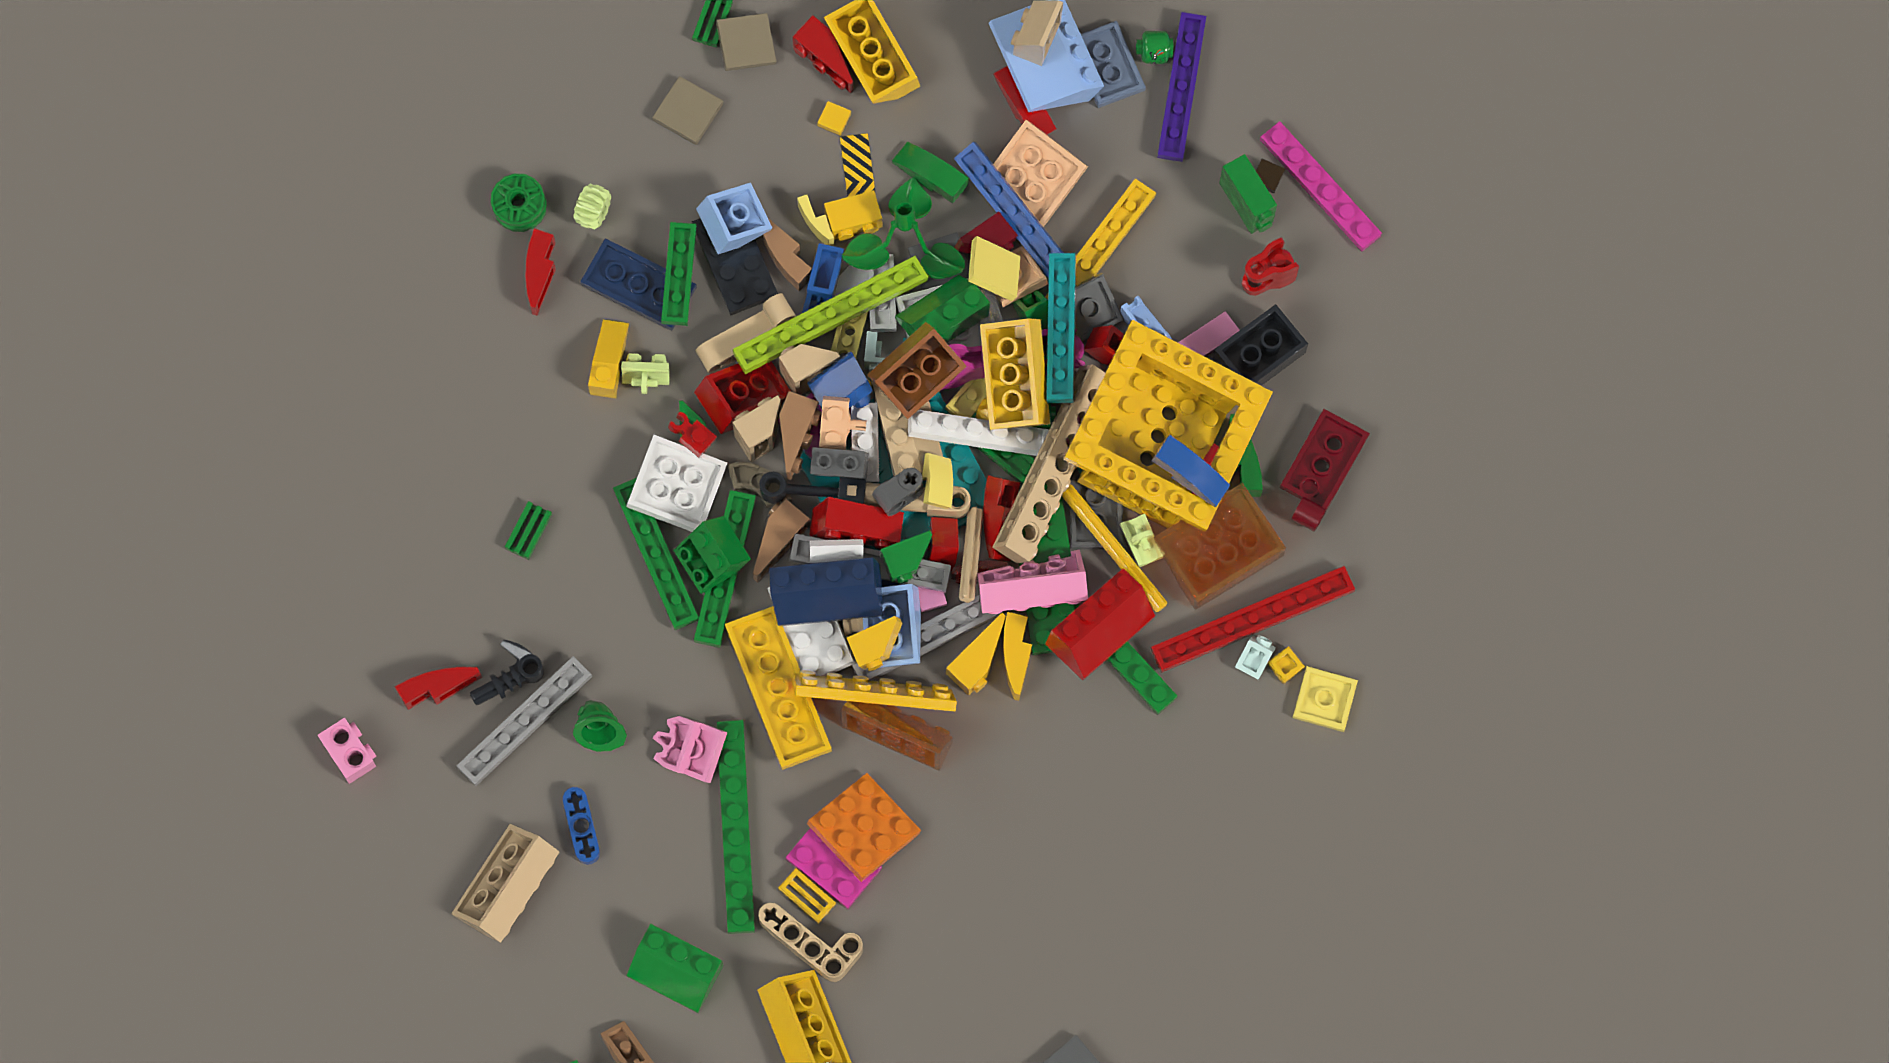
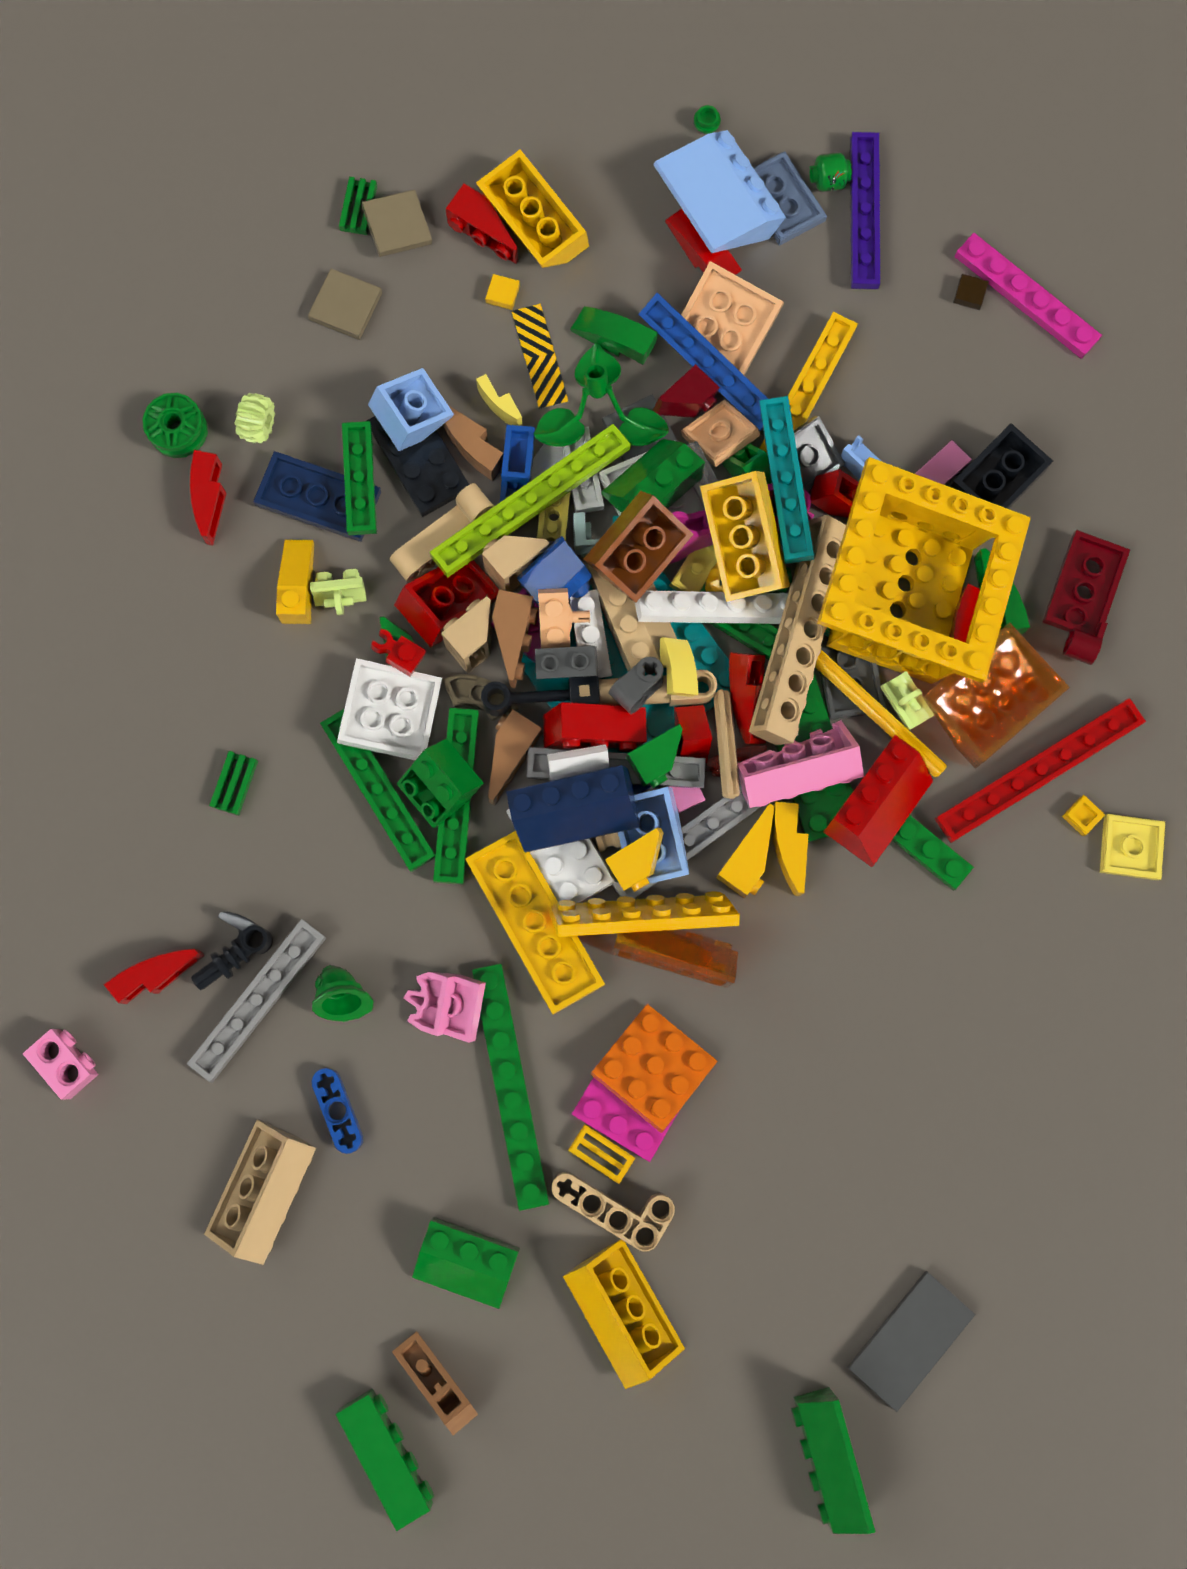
camera: 10 degrees left, 5 degrees up
(853, 215) = (540, 390): yellow brick -> none
(994, 268) = (702, 425): light yellow tile -> none
(1038, 30) = (710, 160): tan slope -> none
(1191, 471) = (962, 616): blue slope -> none
(1248, 194) = (958, 311): green brick -> none
(1255, 656) = (1051, 811): light aqua bracket -> none
(1273, 268) = (996, 387): red piece -> none

